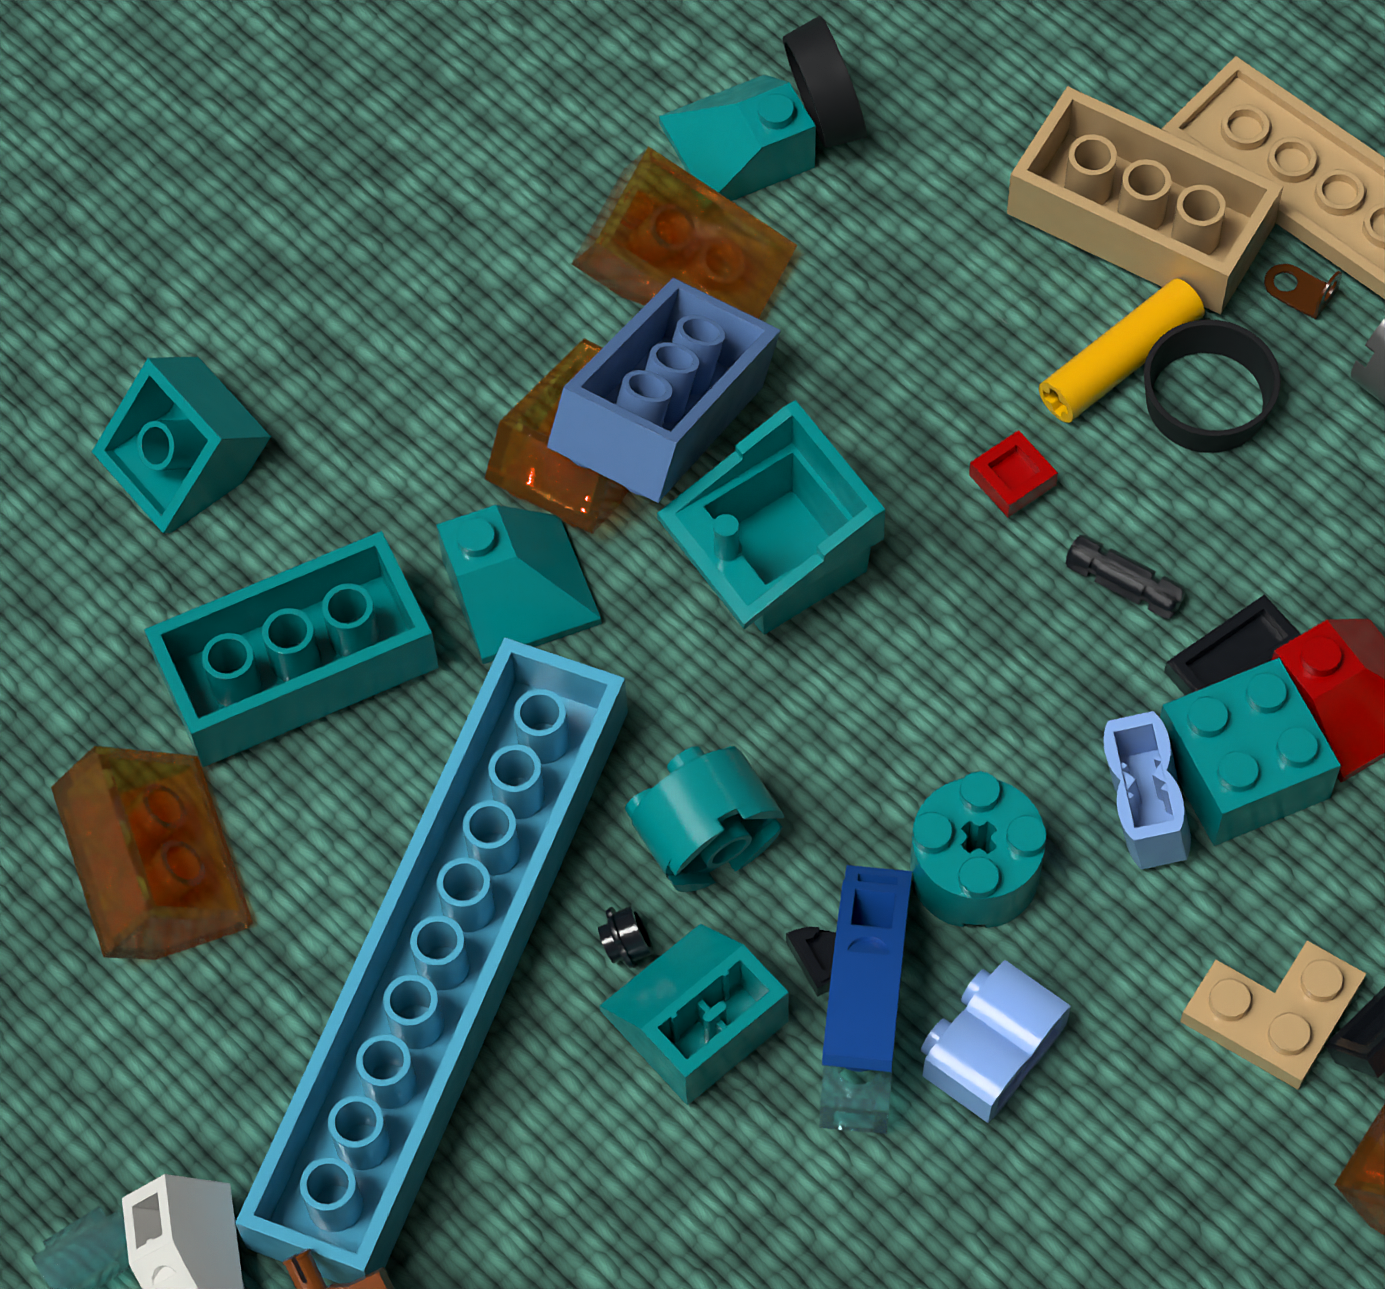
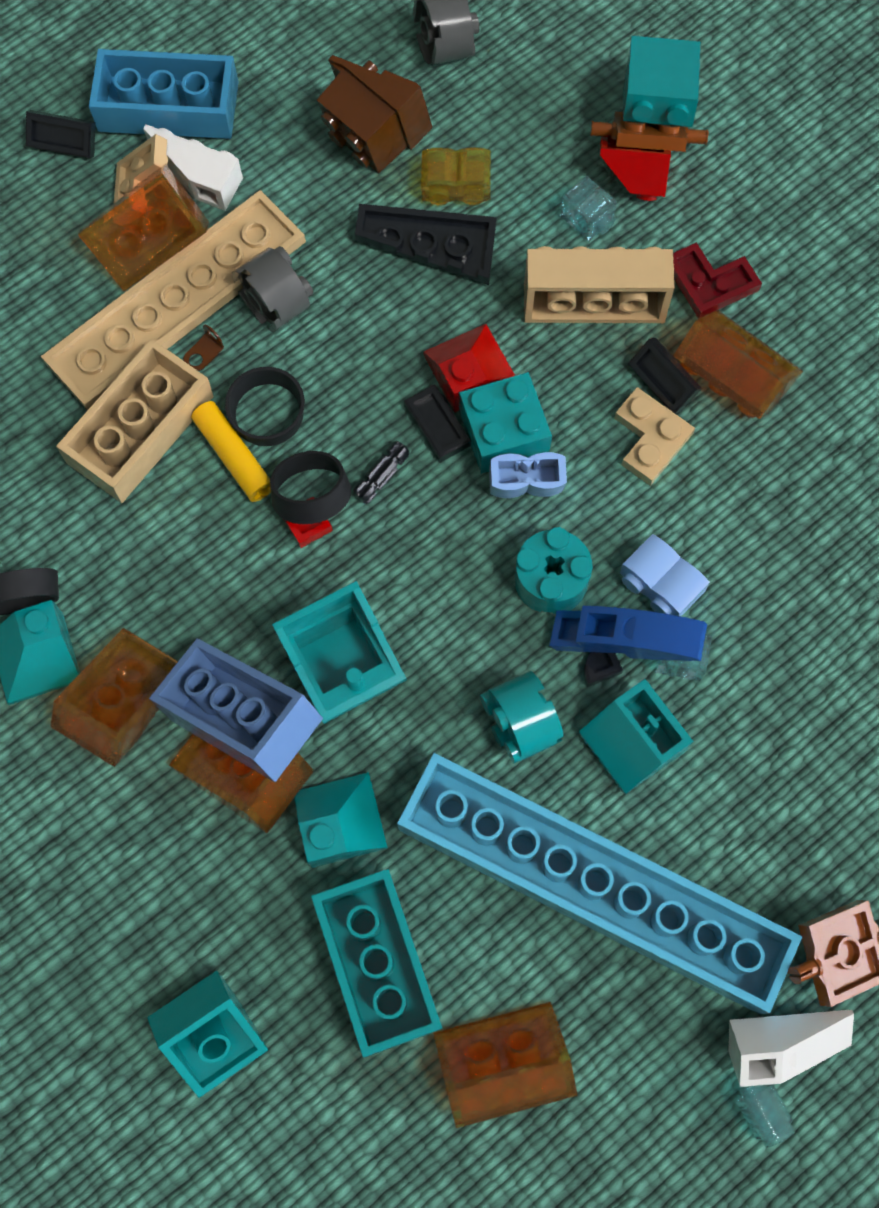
camera: 85 degrees left, 10 degrees up
(625, 936) = (583, 775): black plate -> none
(1049, 494) = (316, 509): none -> black tyre

